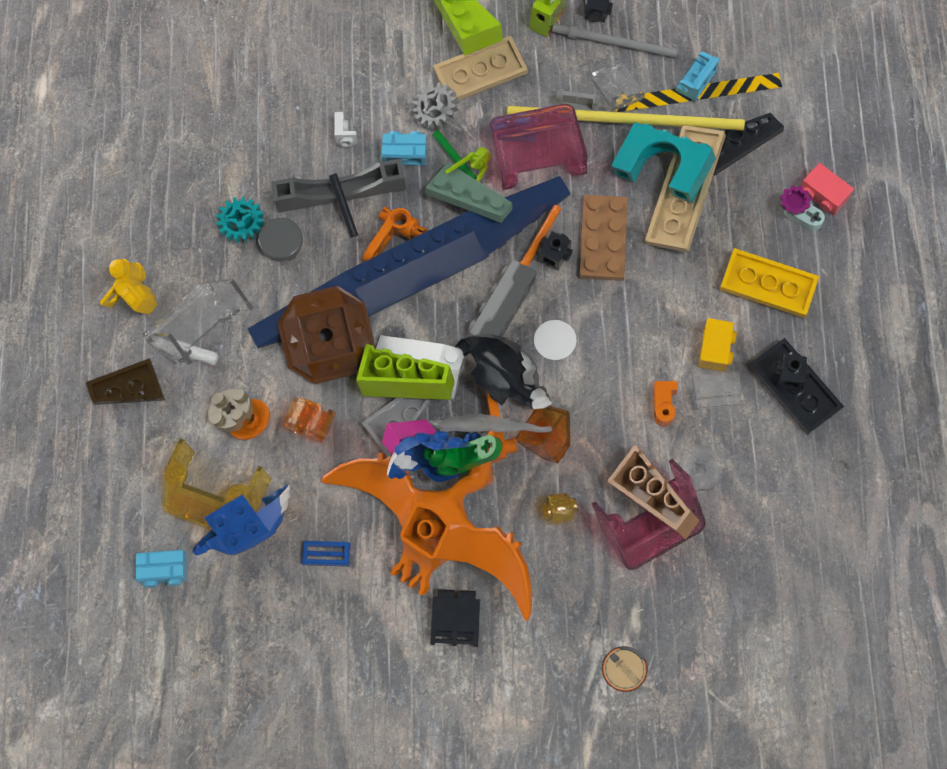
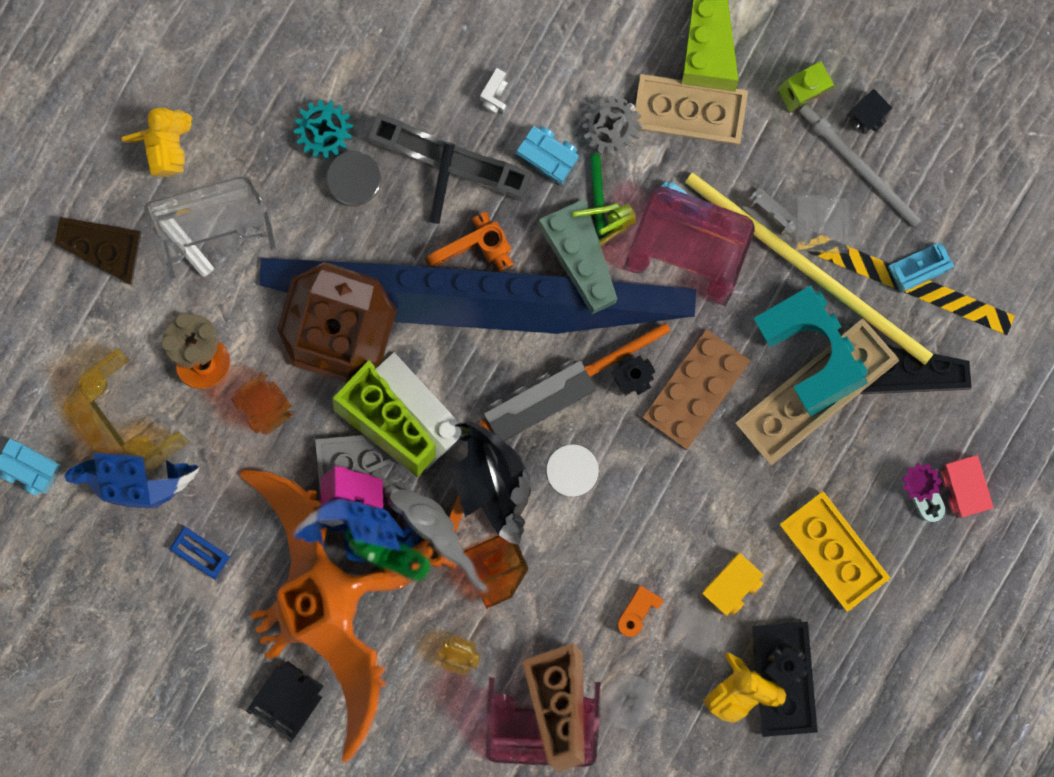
camera: 30 degrees right, 15 degrees up
(774, 408) = (741, 692): none -> yellow piece

